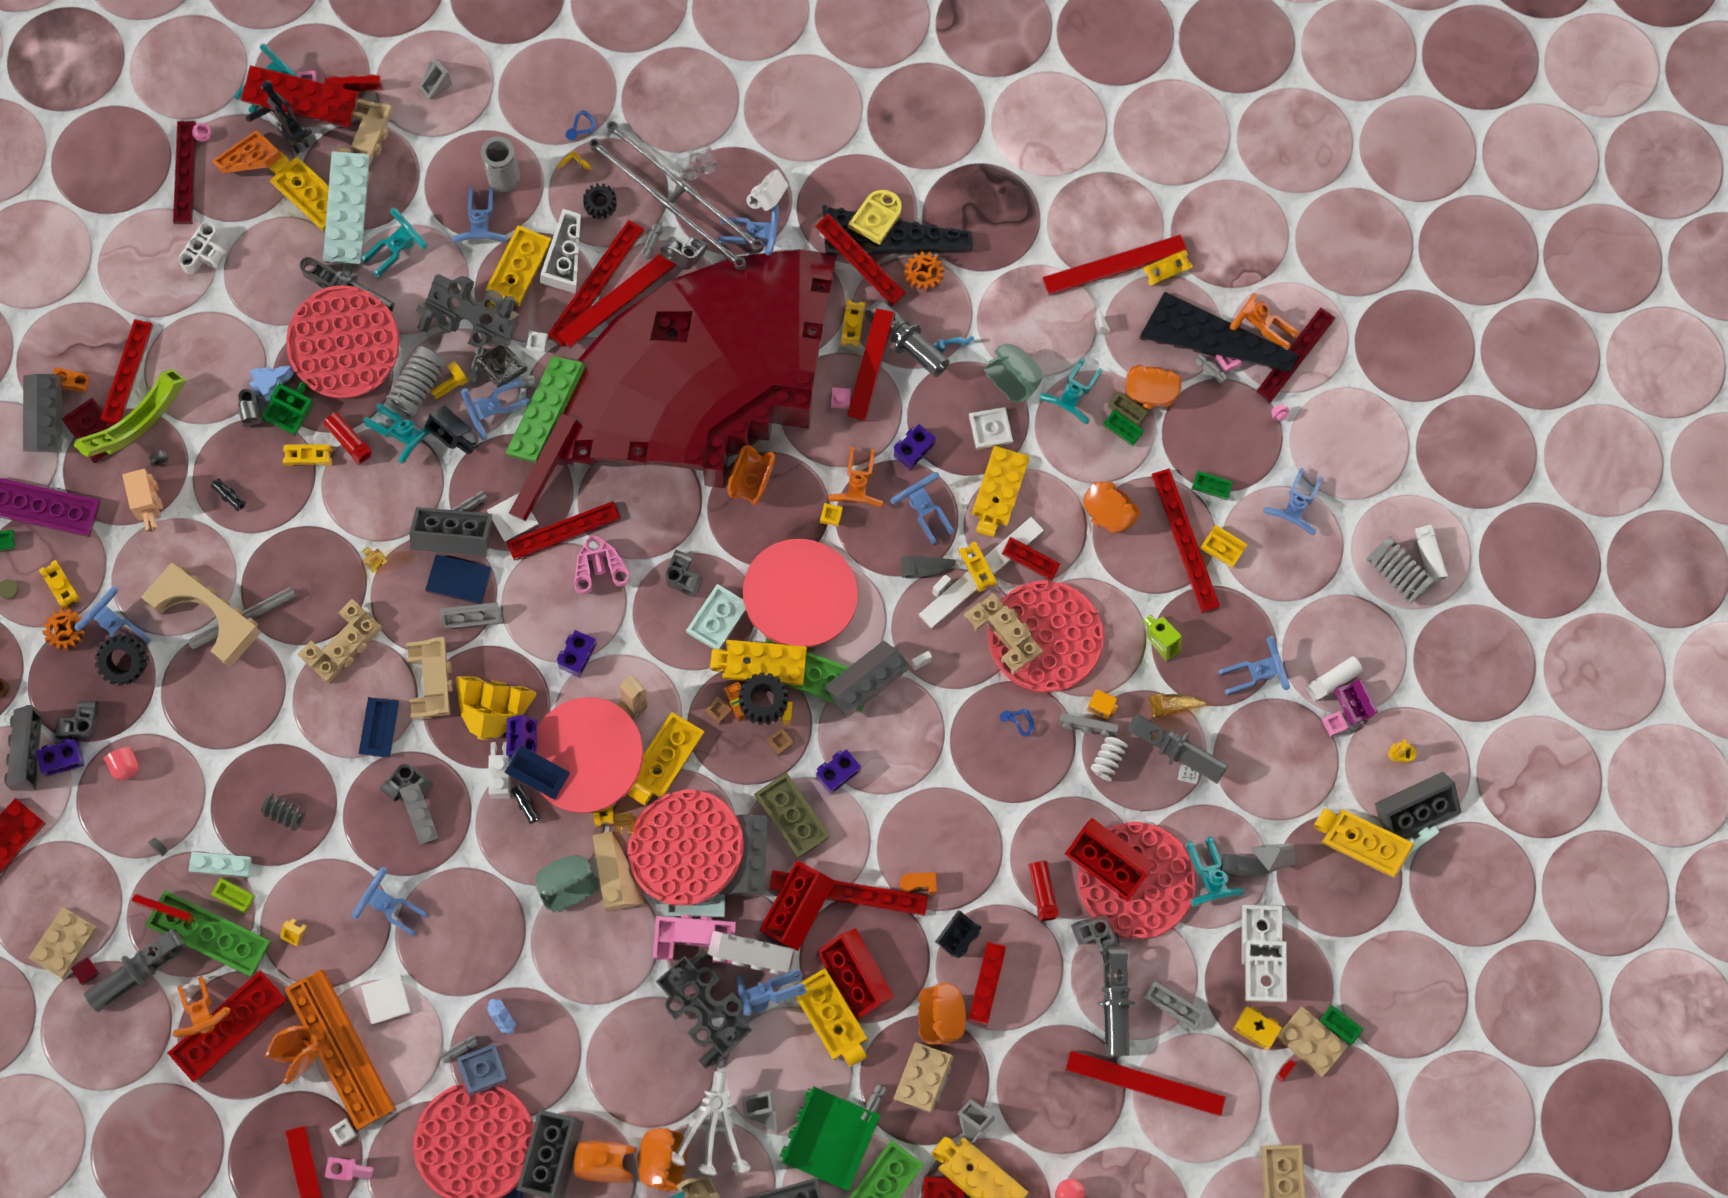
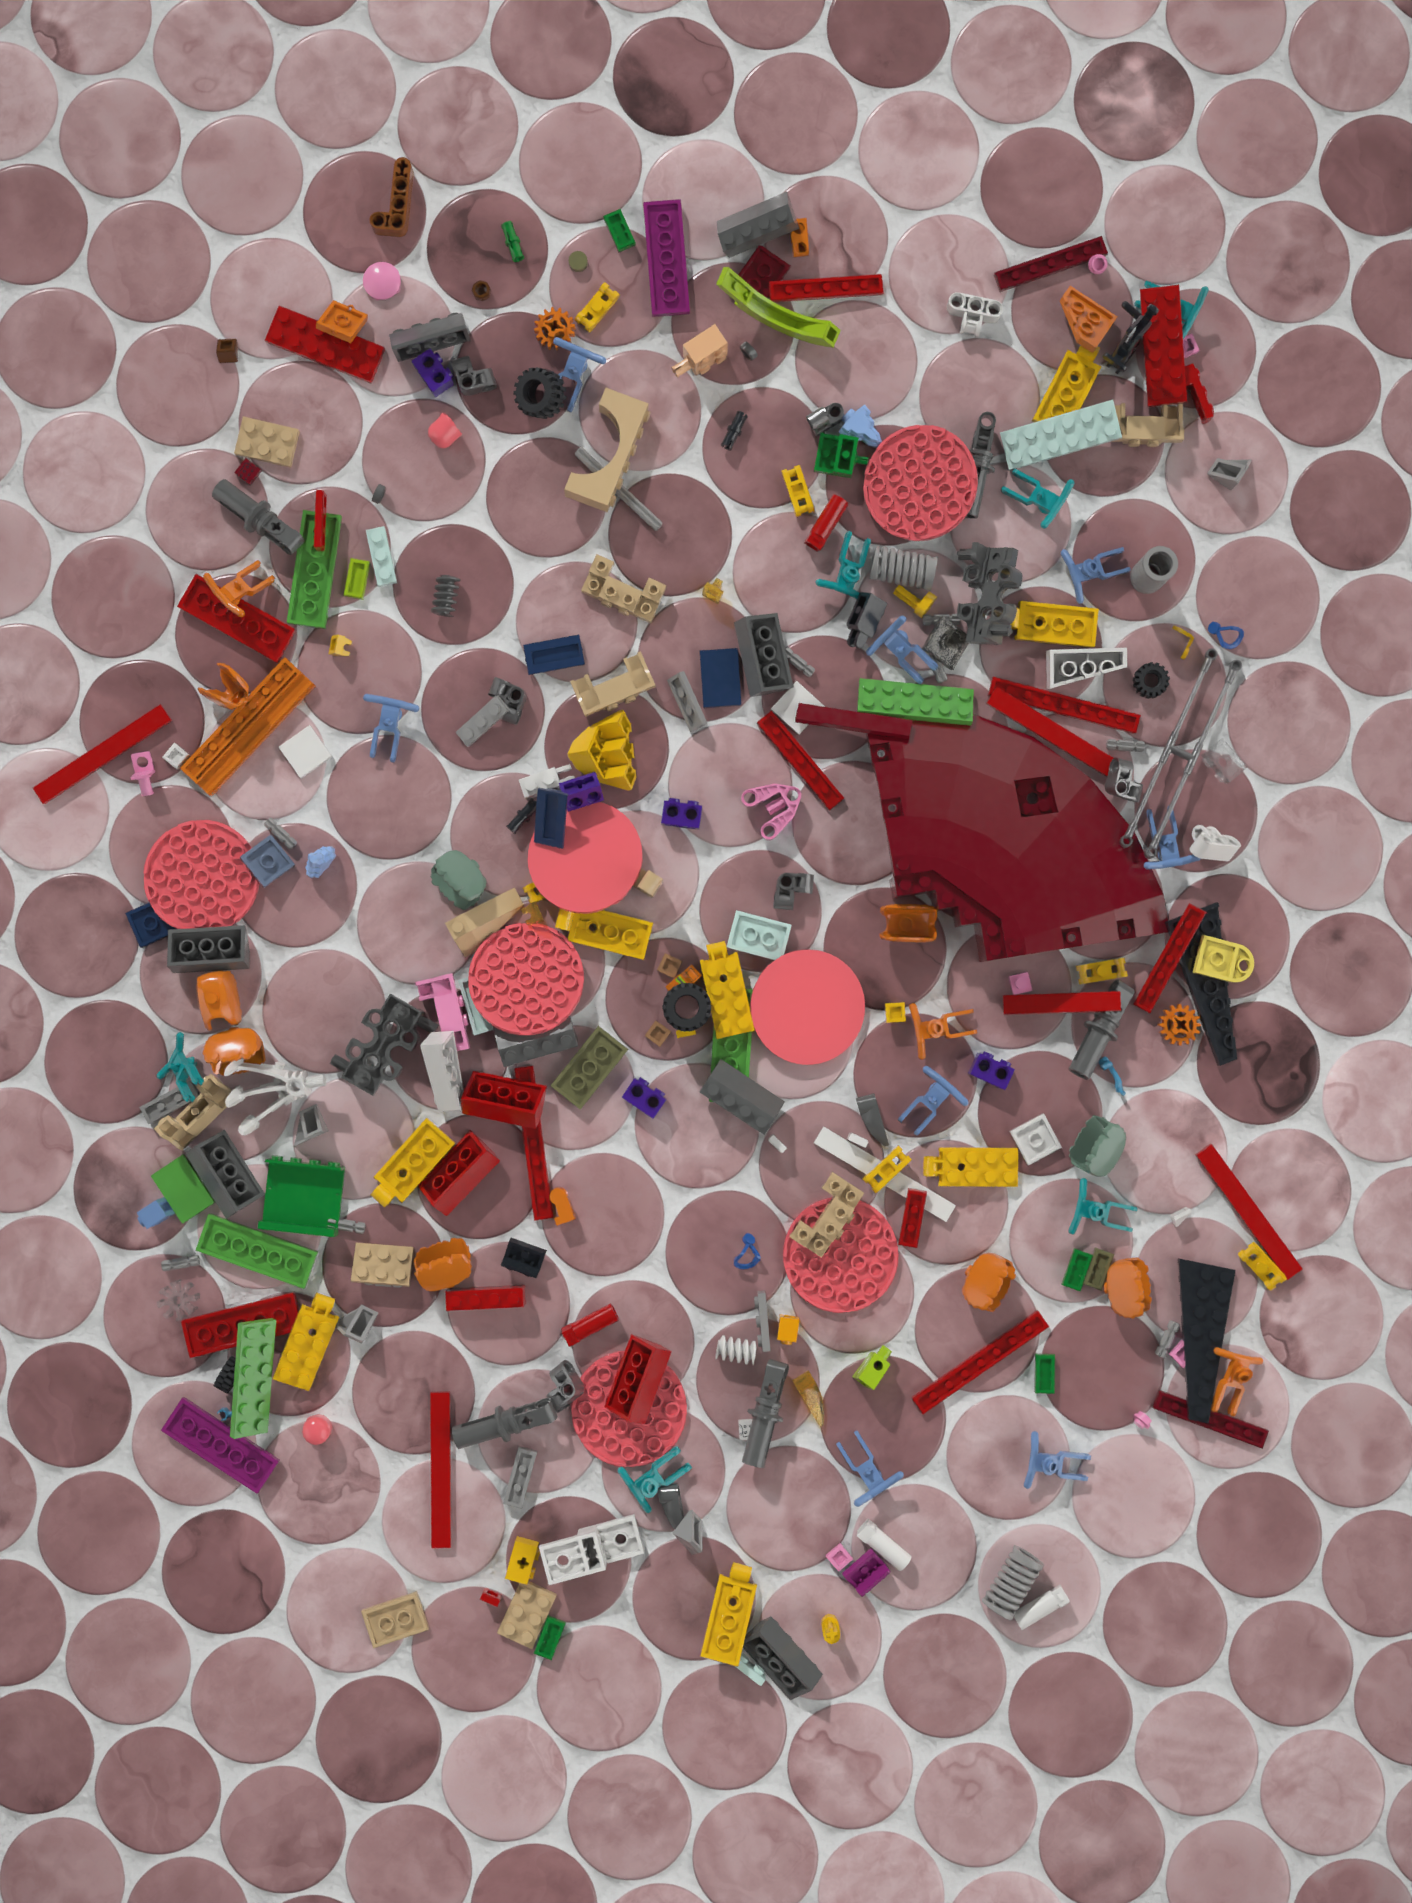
camera: 80 degrees right, 15 degrees up
(537, 341) = (983, 669): white tile -> none
(760, 995) = (409, 1092): medium blue piece -> none
(1223, 546) = (984, 1401): yellow plate -> none

